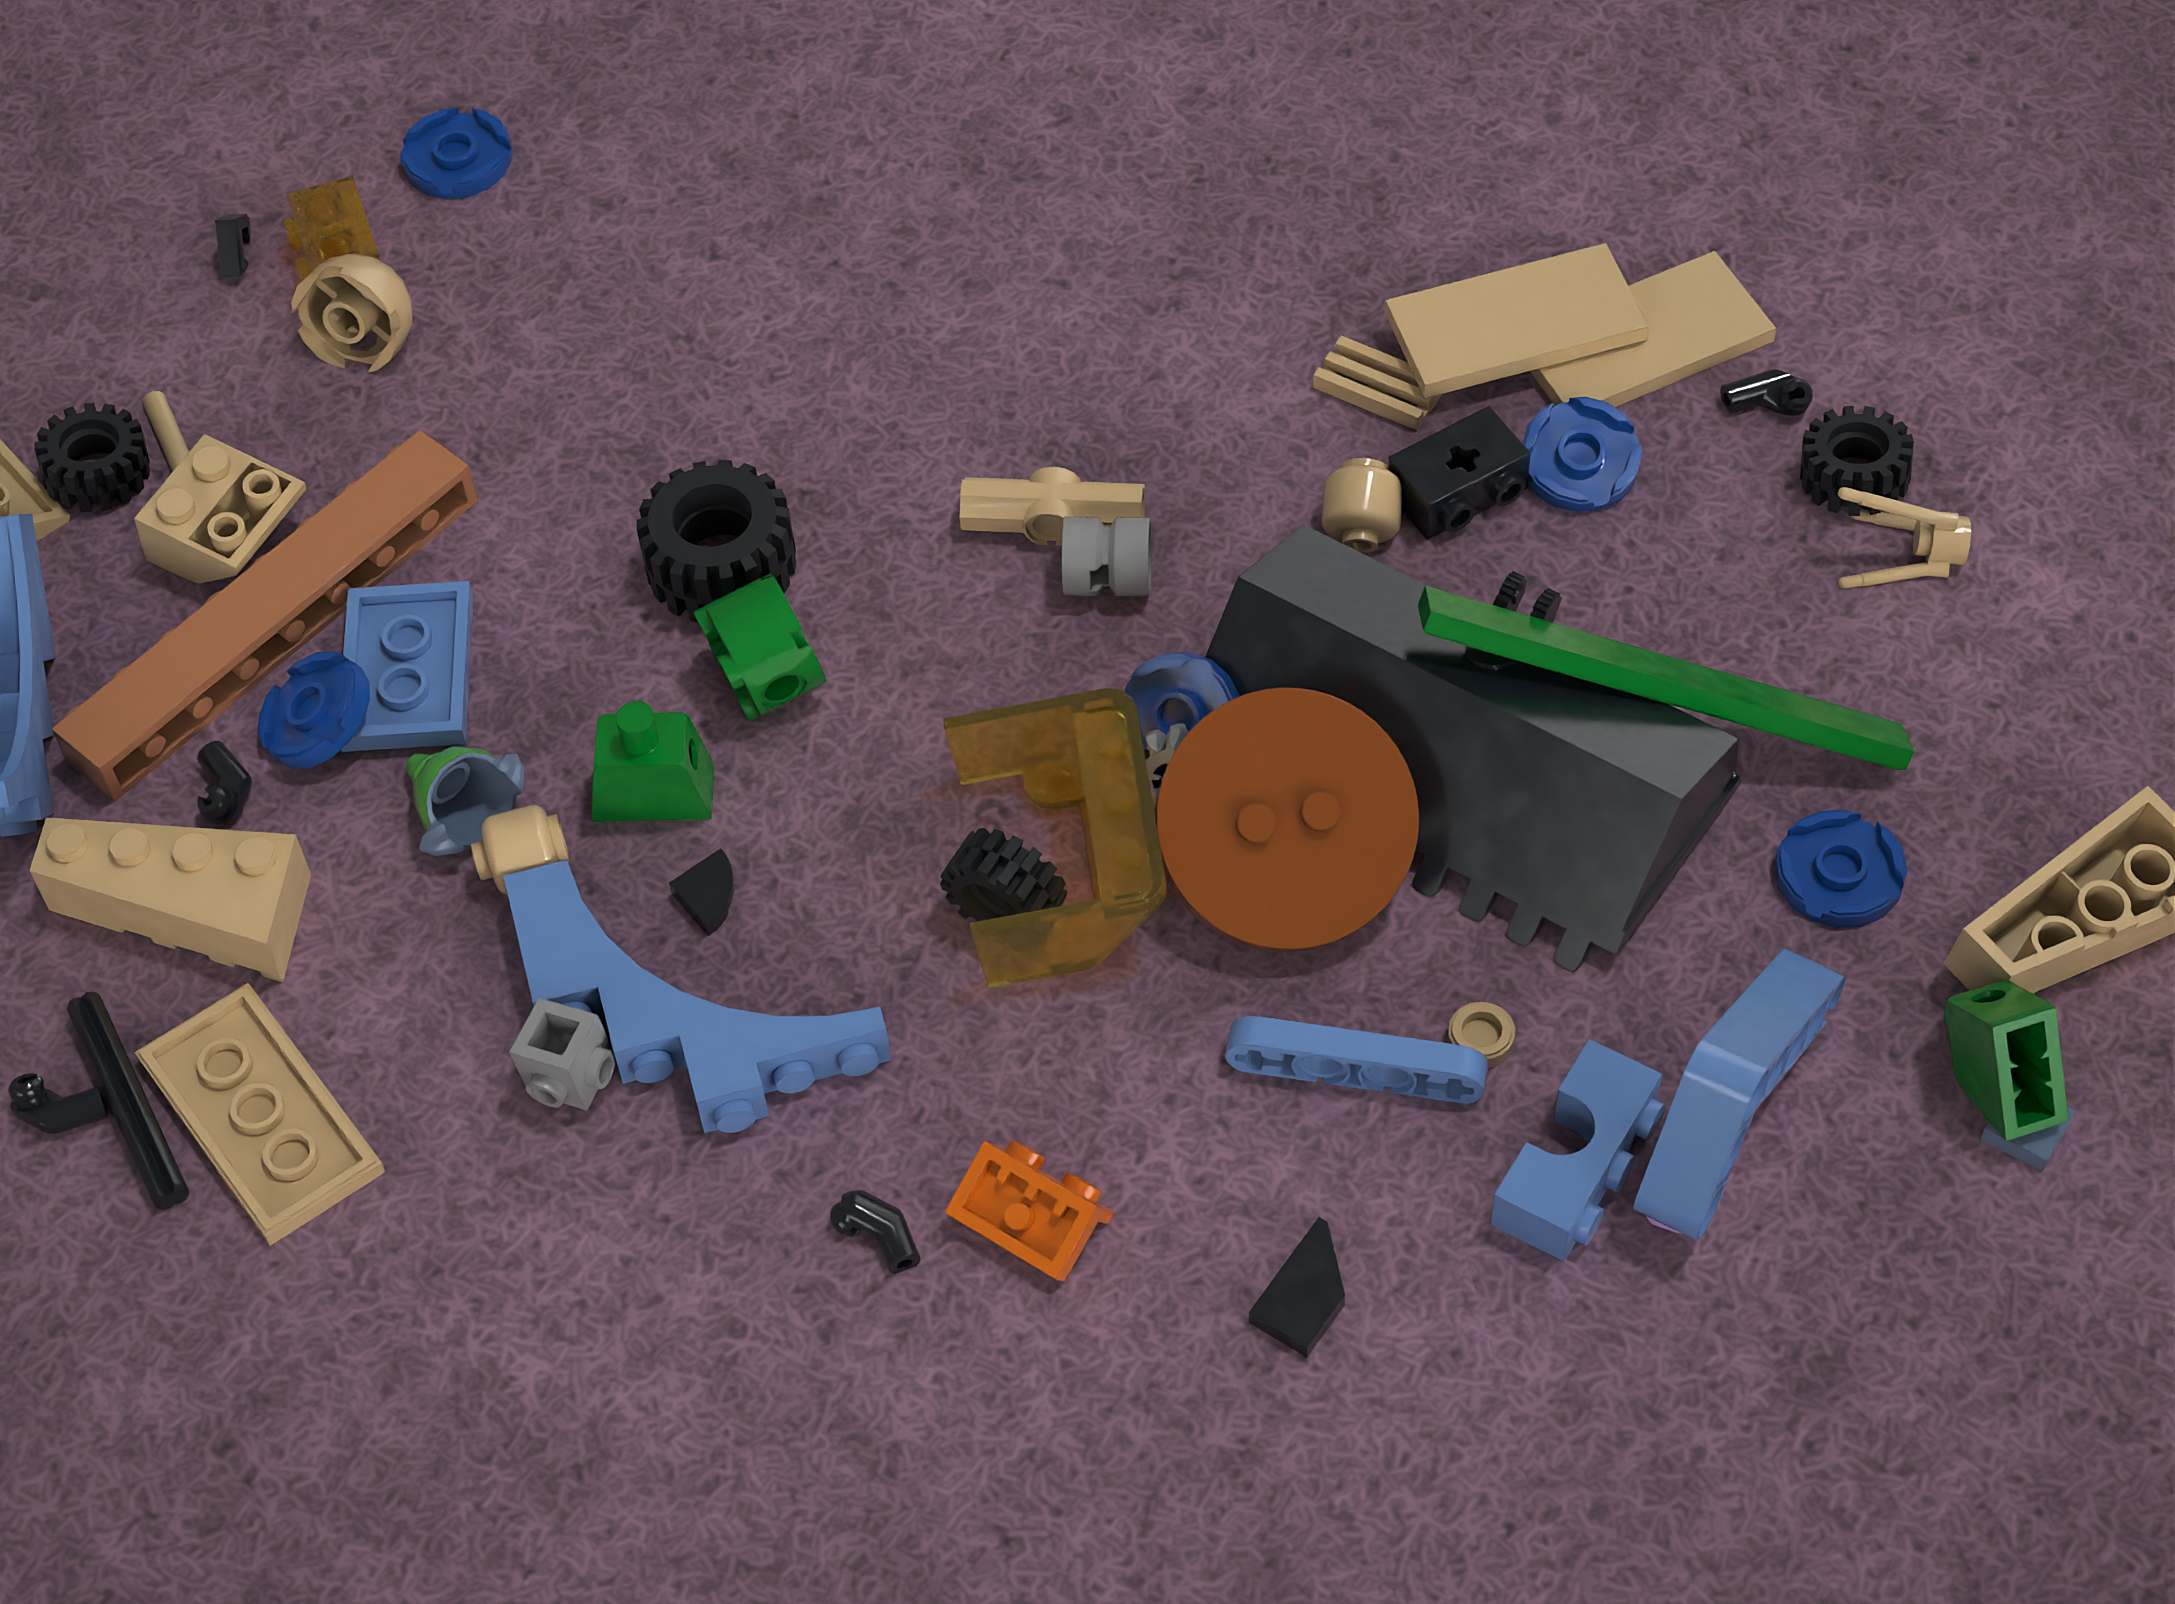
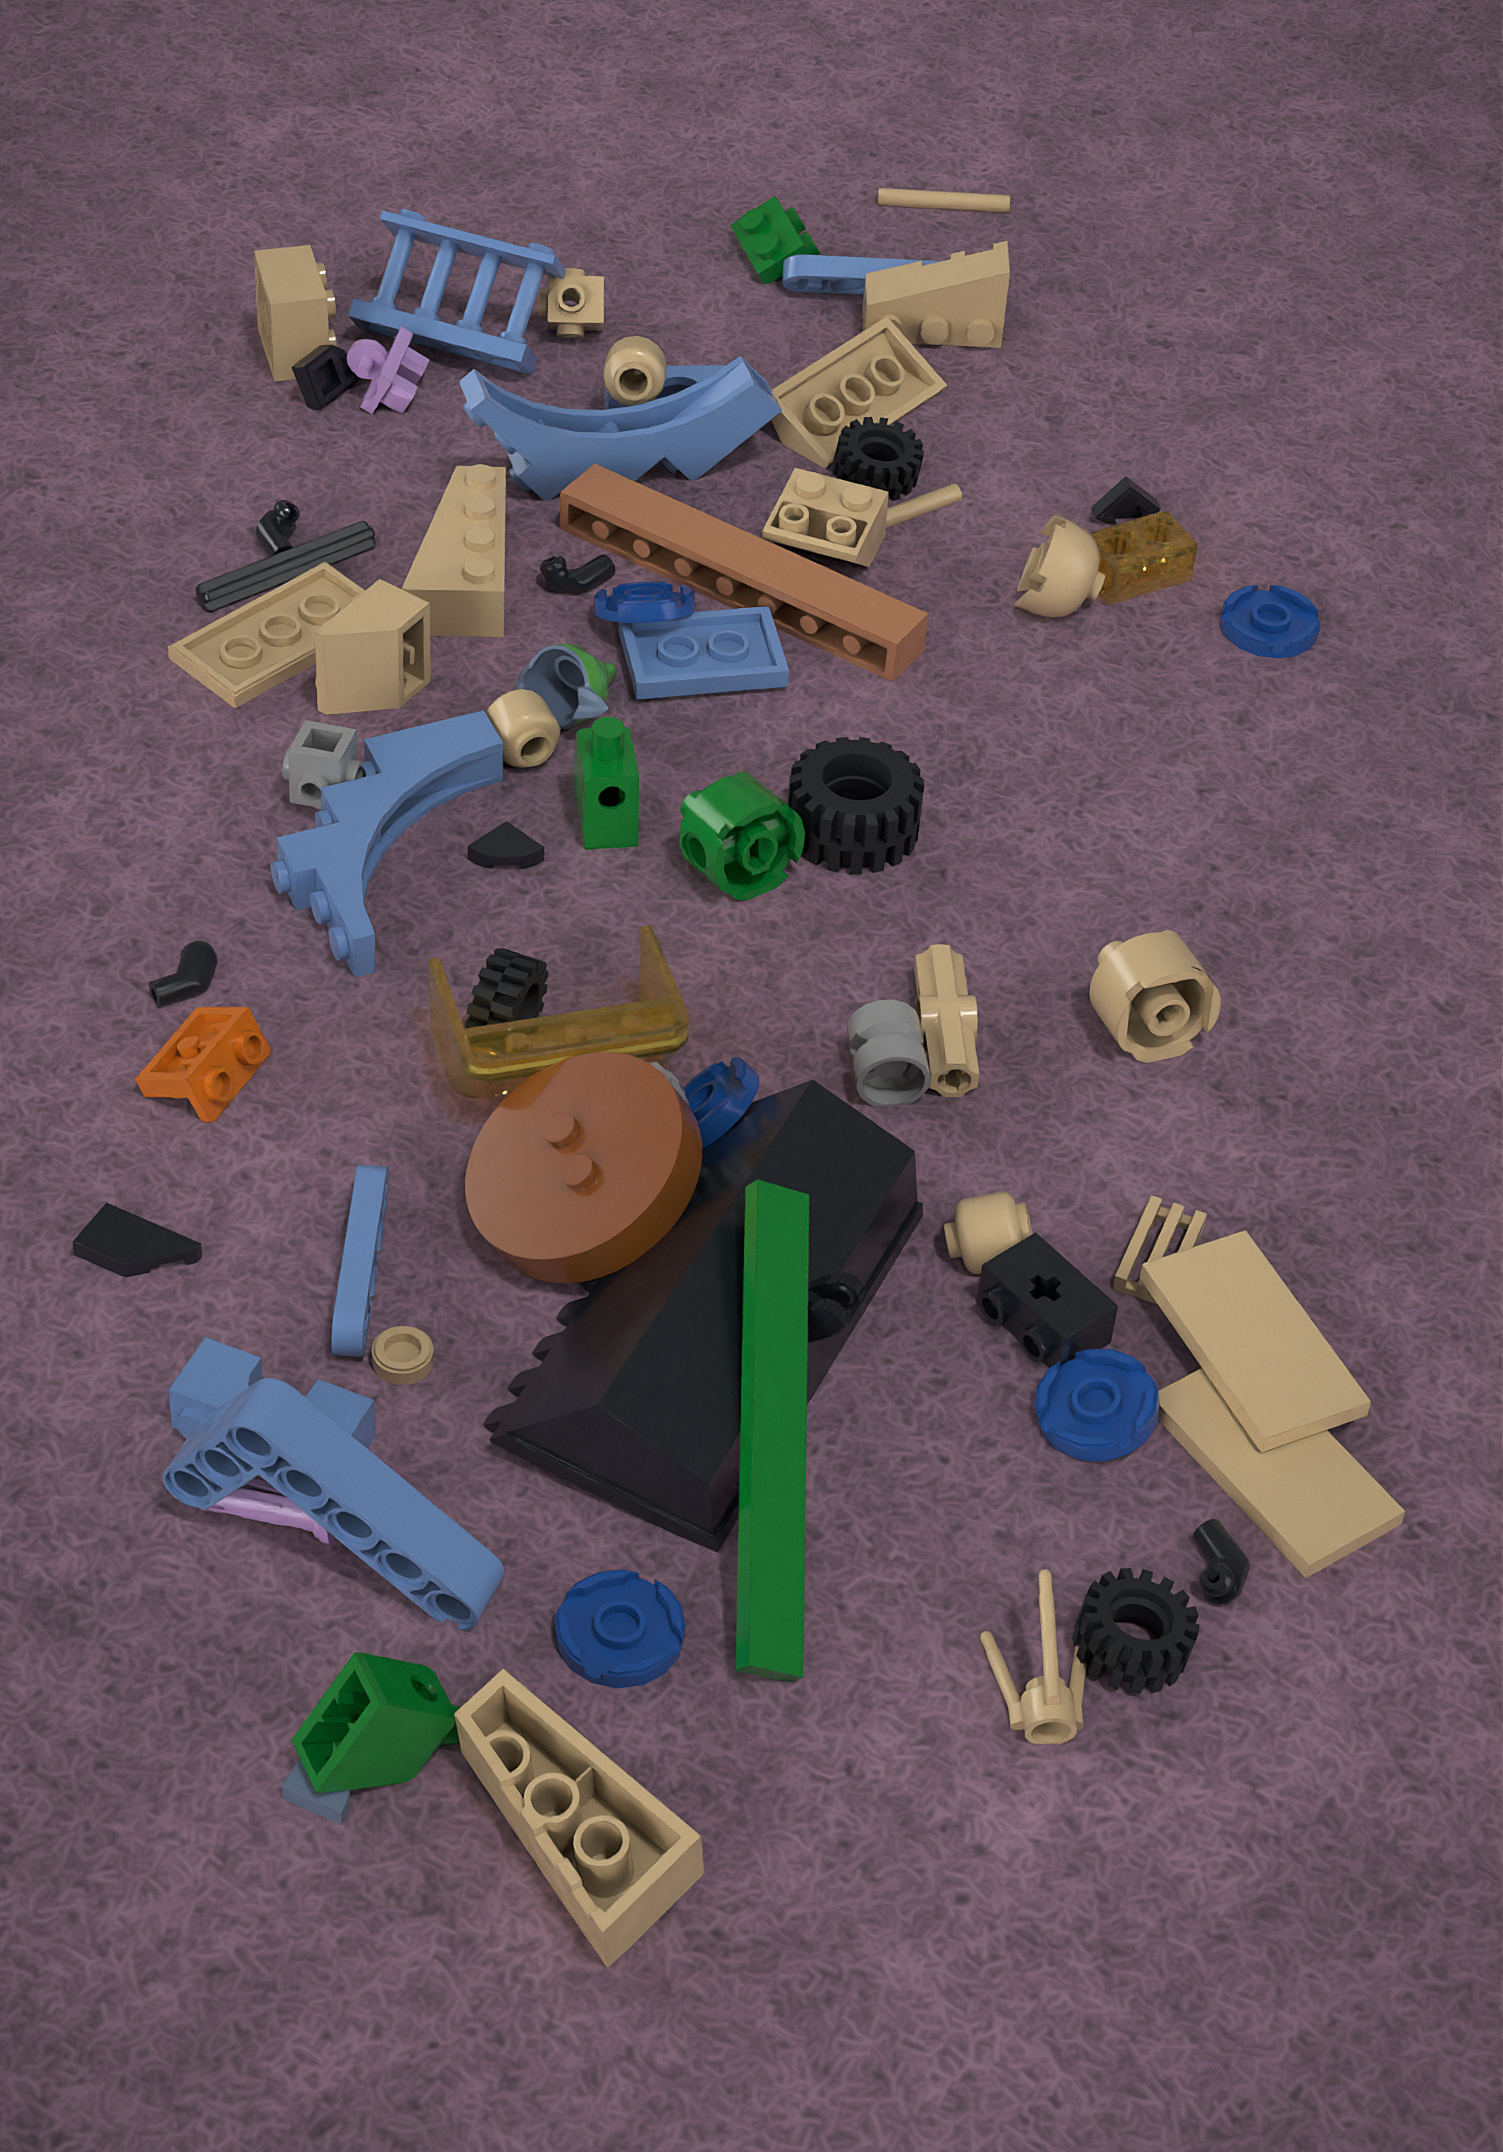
camera: 75 degrees right, 10 degrees down
(365, 982) = (373, 652): none -> tan slope
(1061, 320) = (1153, 995): none -> tan brick

